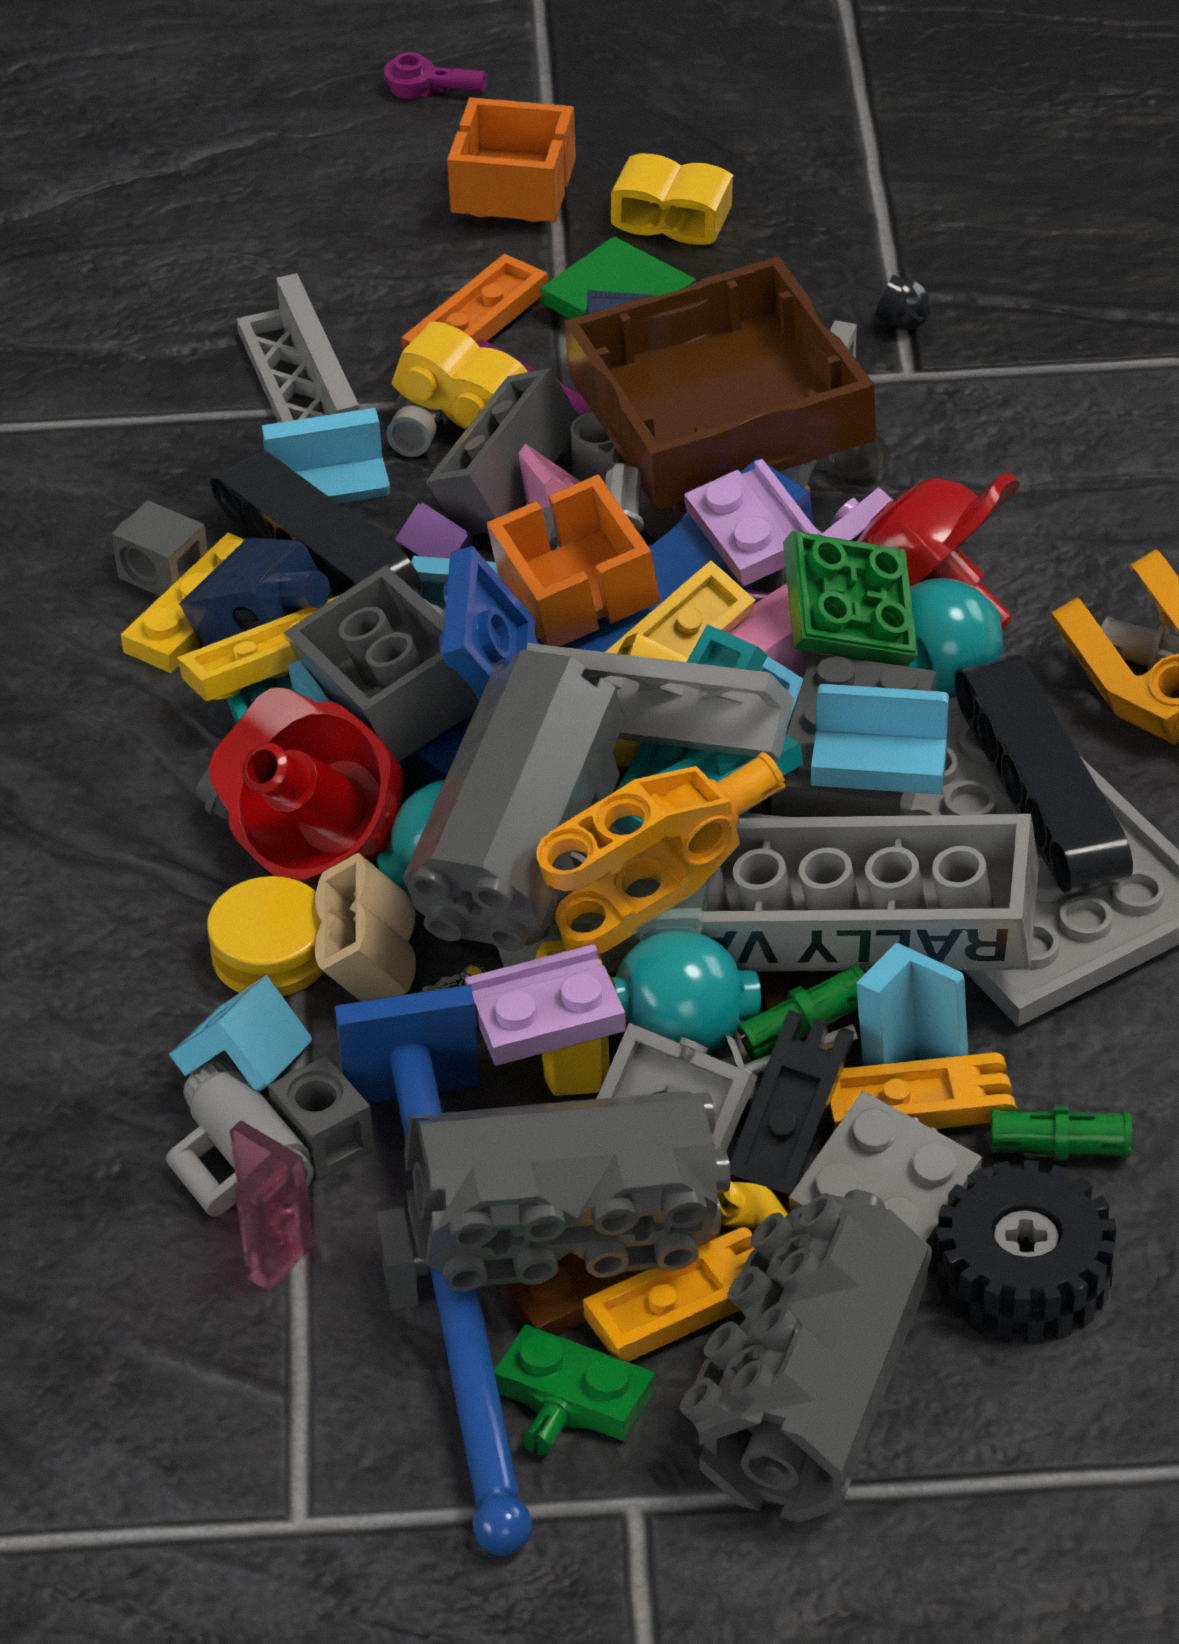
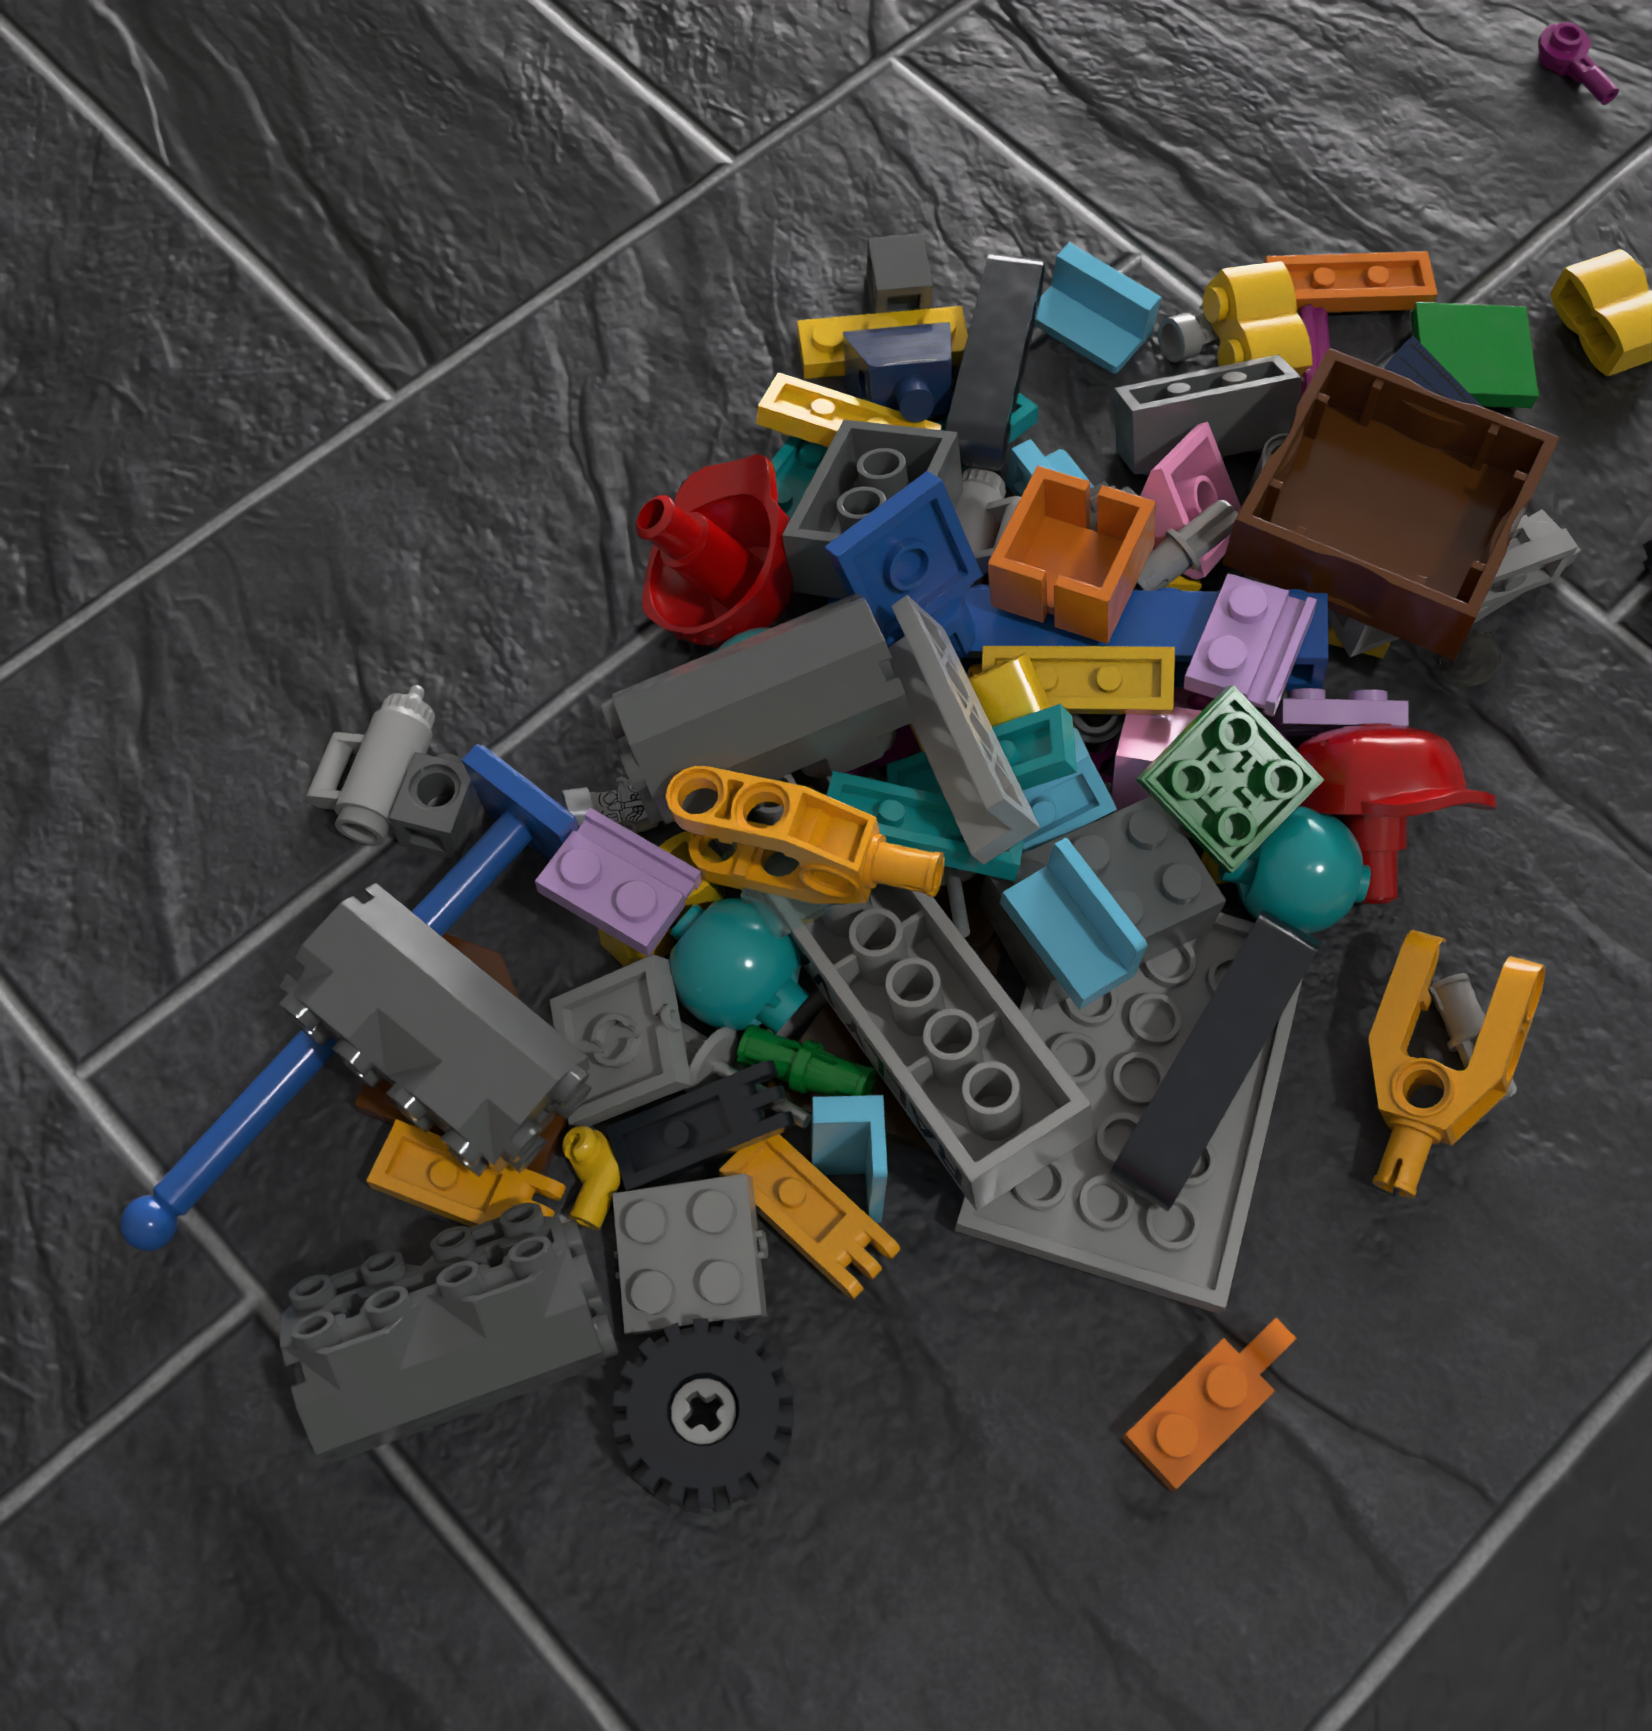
camera: 45 degrees right, 20 degrees up
(255, 1032) = (462, 702): medium azure panel -> none
(265, 930) = (586, 638): yellow head -> none
(270, 1204) = (299, 847): clear pink panel -> none
(302, 345) = (1197, 212): light grey fence -> none
(364, 930) = (628, 664): tan brick -> none
(432, 534) = (1083, 436): medium lavender slope -> none
(511, 159) = (1530, 177): orange piece -> none
(571, 1387) = (322, 1171): green plate -> none
(1061, 1133) = (858, 1351): green pin -> none

